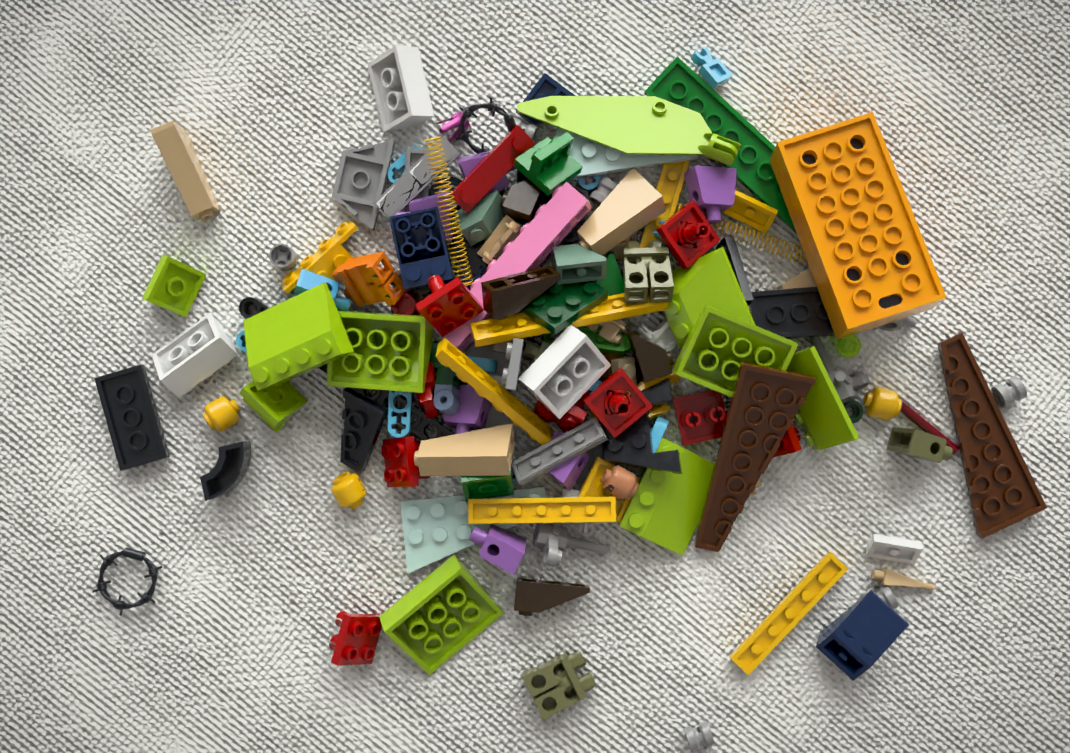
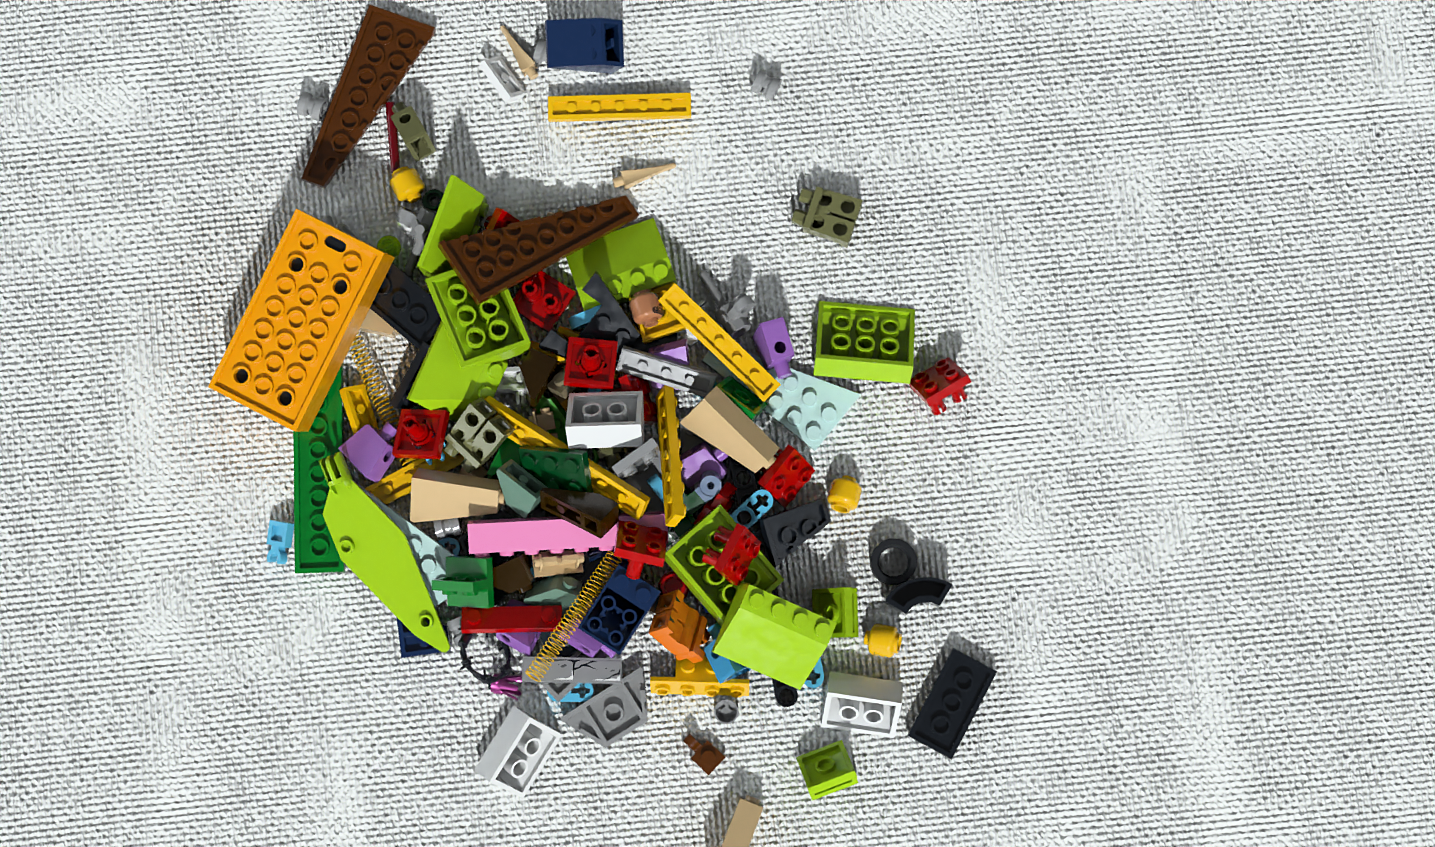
camera: 135 degrees left, 5 degrees down
(136, 555) = (1046, 602): black piece -> none
(249, 476) = (893, 543): none -> black tyre
(270, 215) = (705, 755): none -> reddish brown plate
(373, 374) = (737, 554): none -> red plate
(540, 595) = (778, 285): dark brown slope -> none
(727, 569) = (632, 177): none -> tan piece

